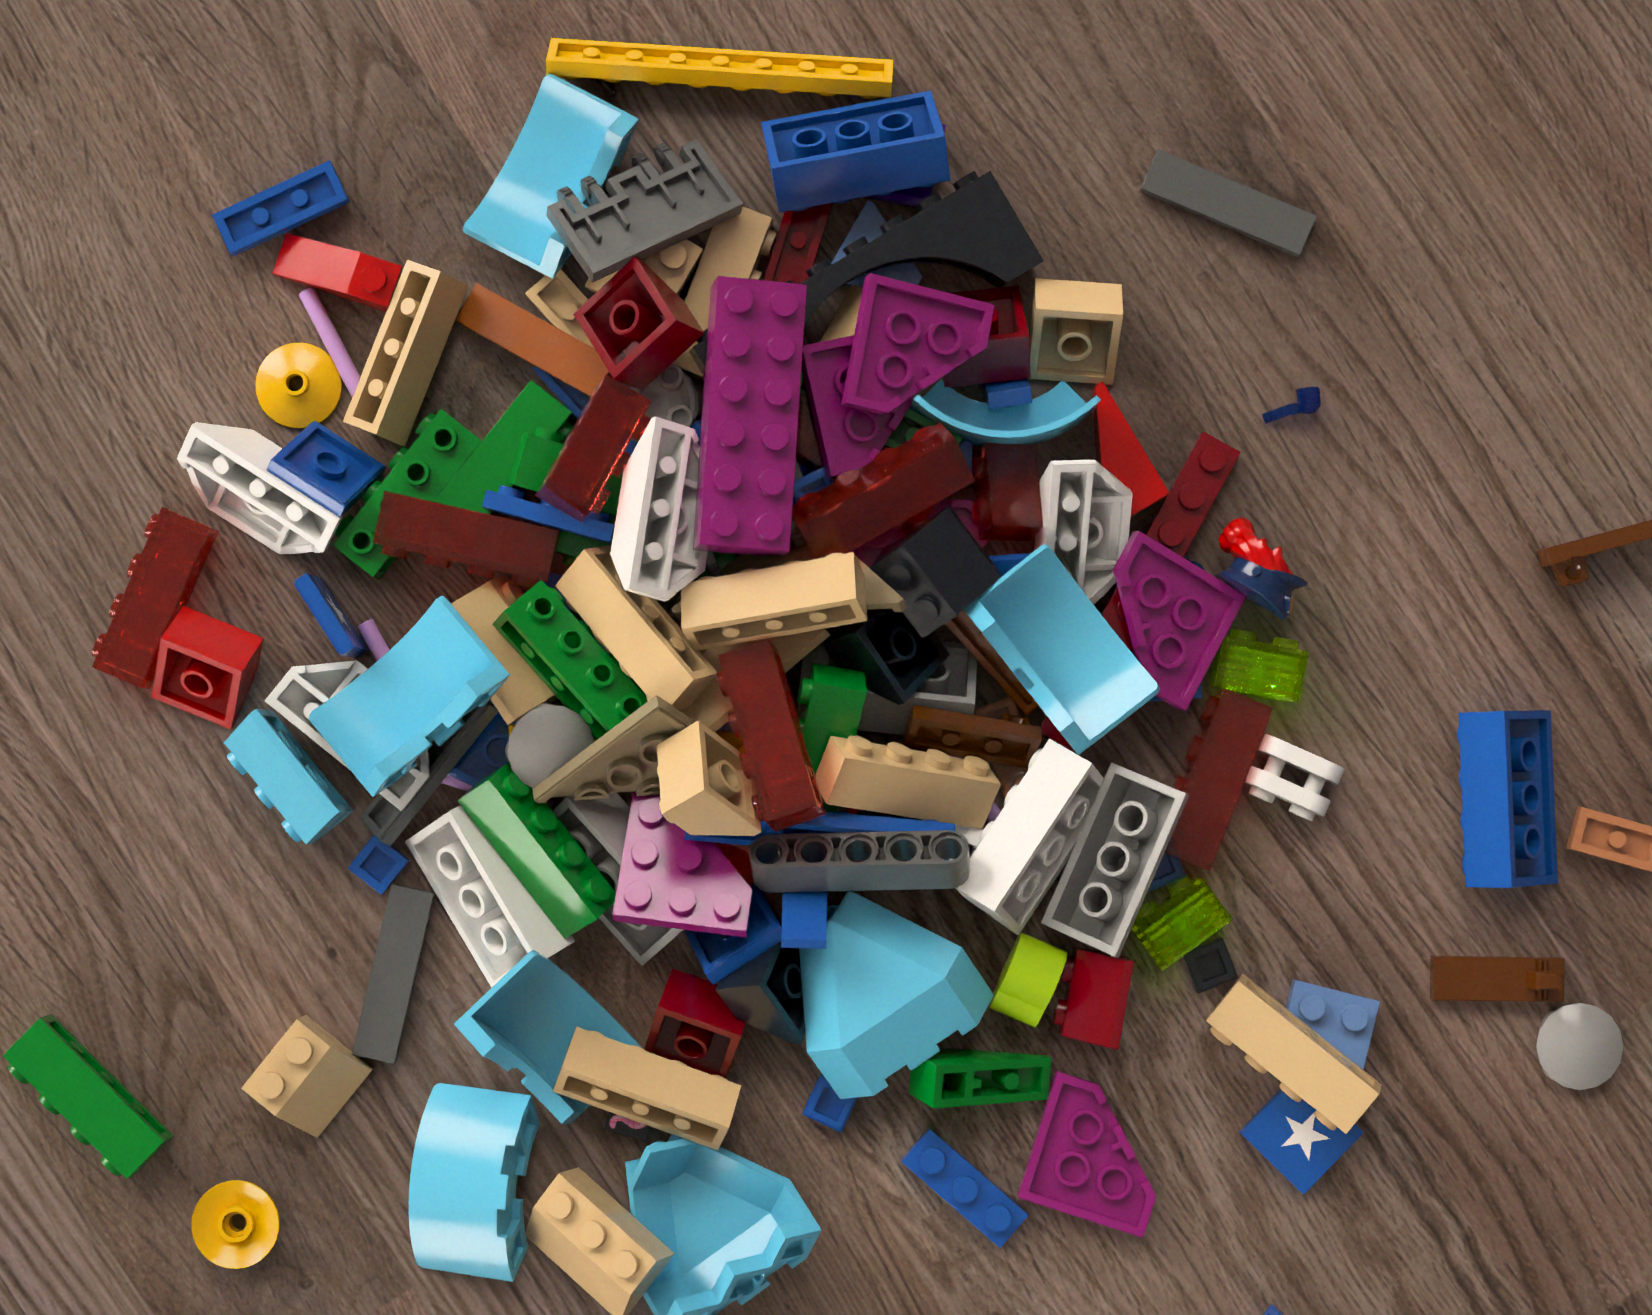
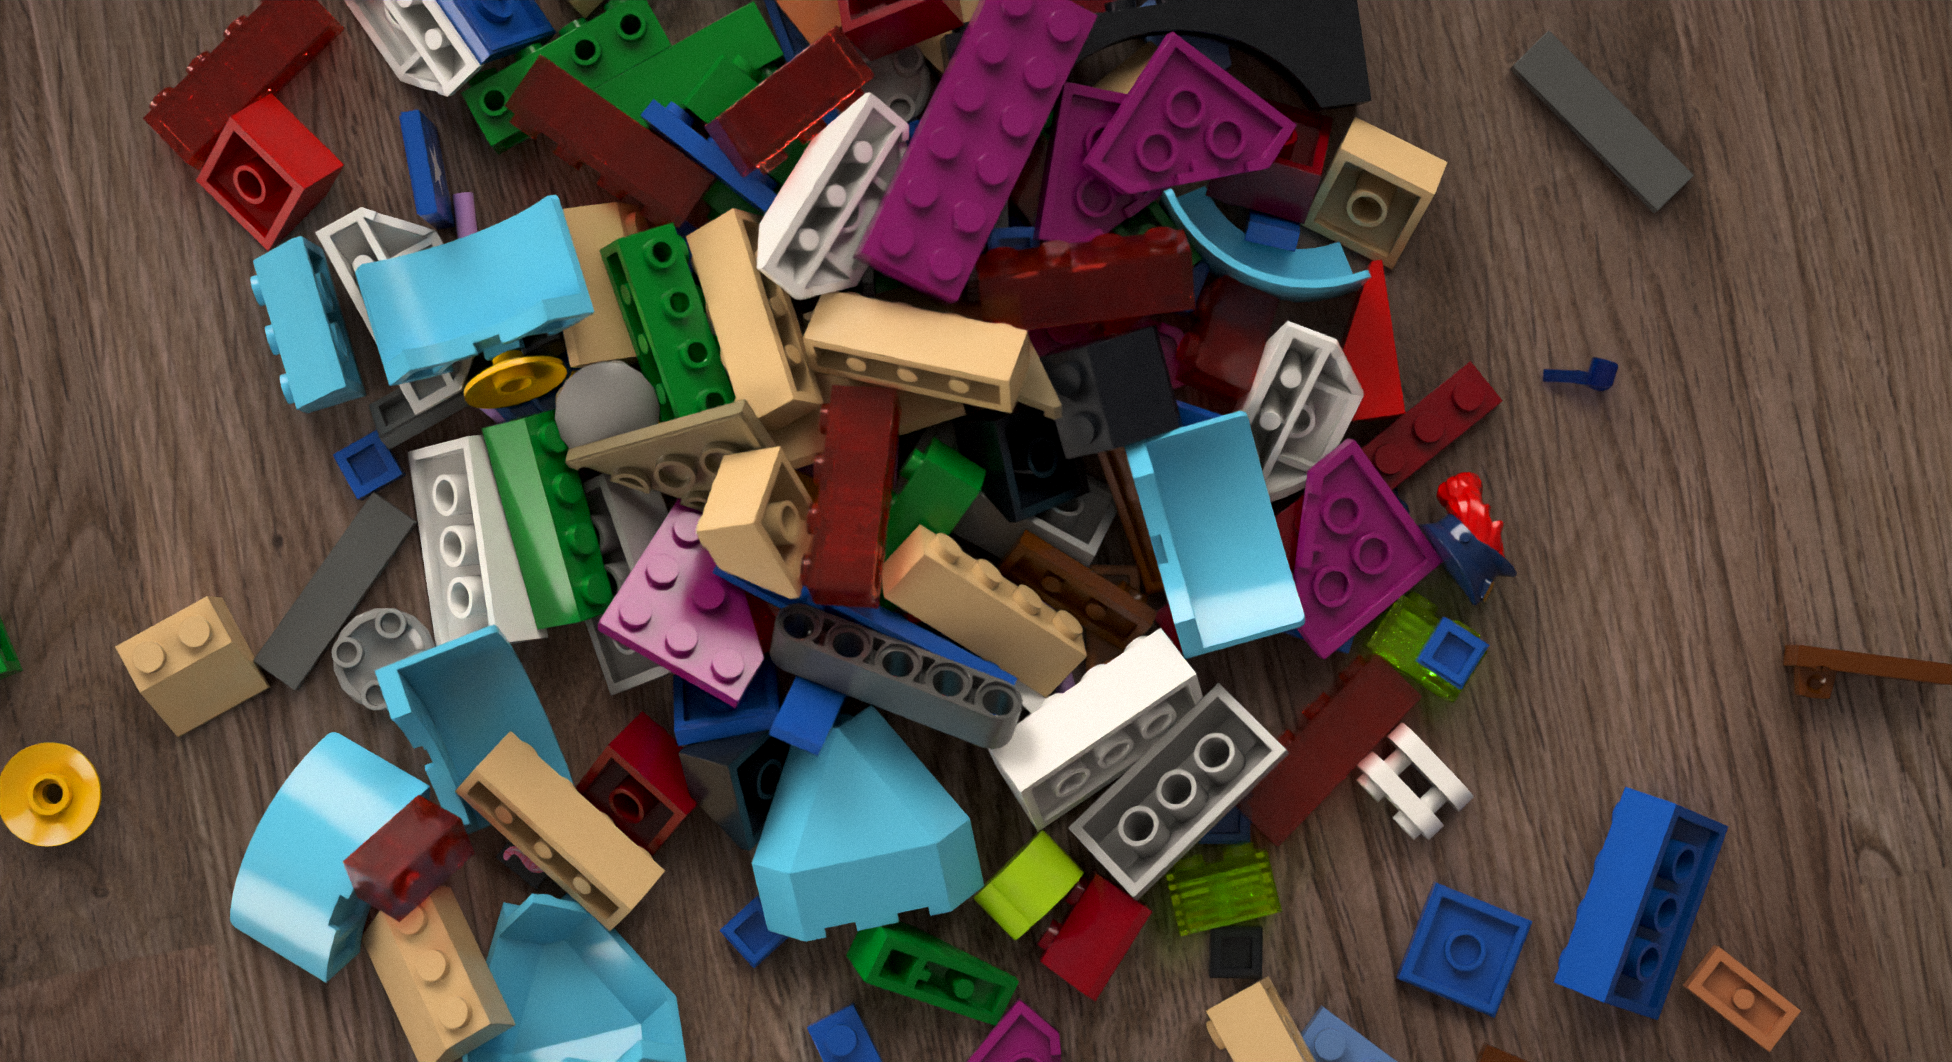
camera: 20 degrees right, 0 degrees up
(441, 1002) = (372, 643): none -> light grey dish
(467, 752) = (514, 380): none -> yellow dish
(539, 1158) = (408, 858): none -> clear red brick
(1282, 664) = (1451, 653): none -> blue tile
(1385, 890) = (1464, 949): none -> blue tile

